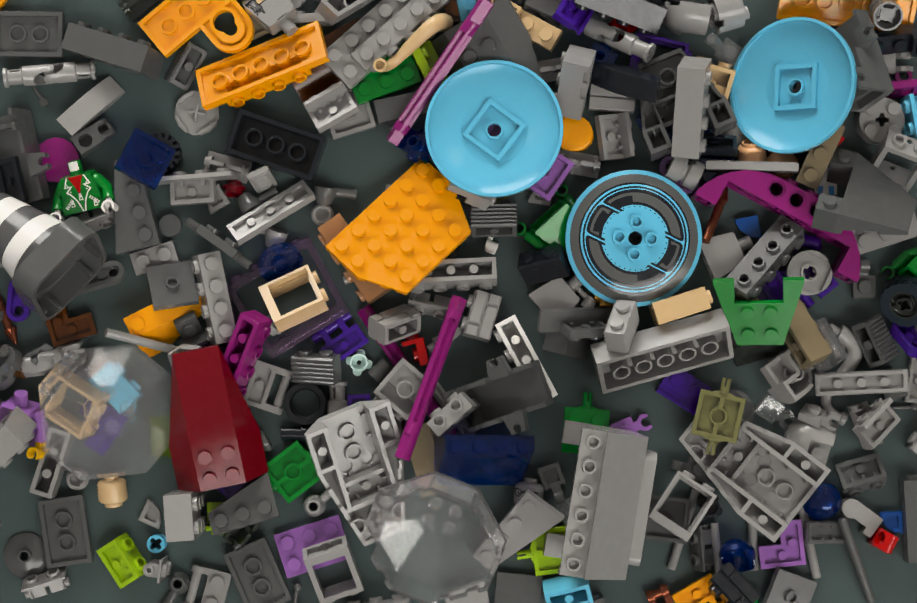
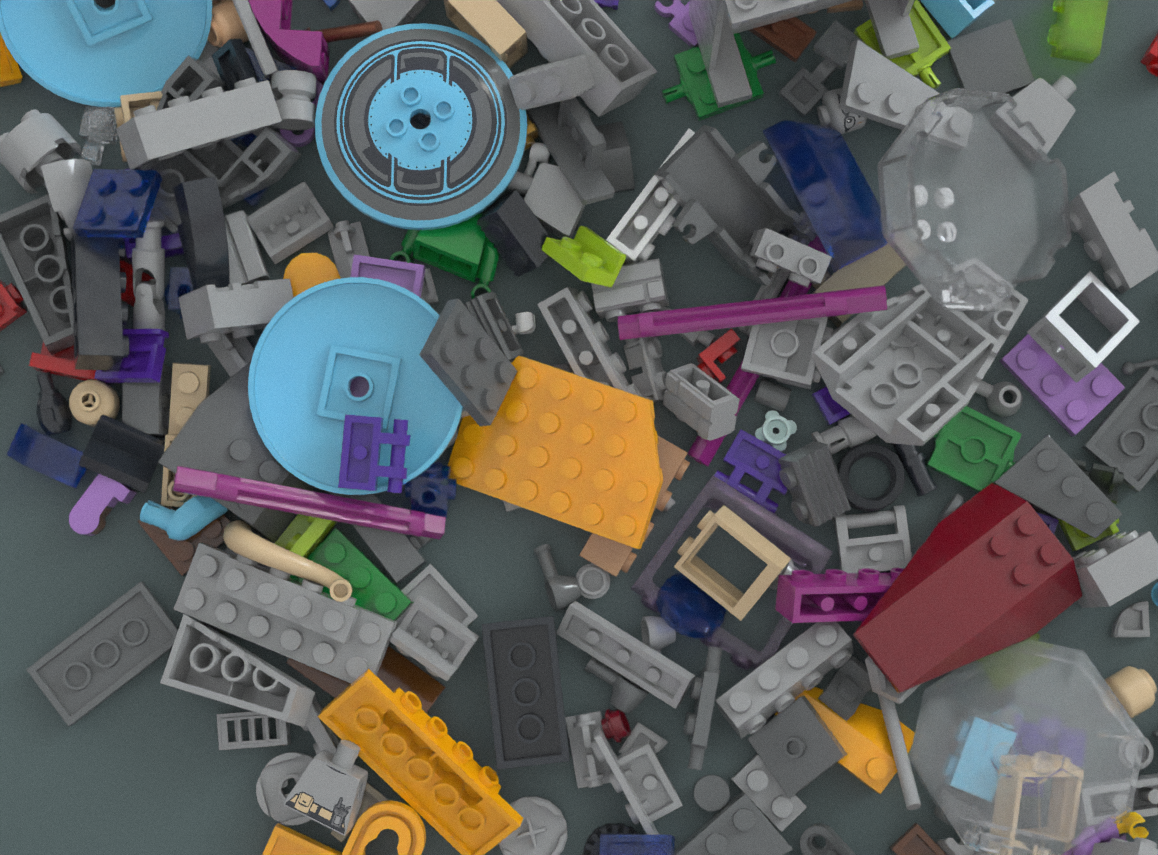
camera: 120 degrees left, 5 degrees down
(262, 179) = (584, 688): light grey slope -> none
(451, 112) = (362, 453): none -> dark purple plate
(476, 198) = (468, 362): none -> dark grey plate
(509, 297) = (587, 256): none -> lime bracket
(667, 39) = (117, 203): none -> clear blue plate

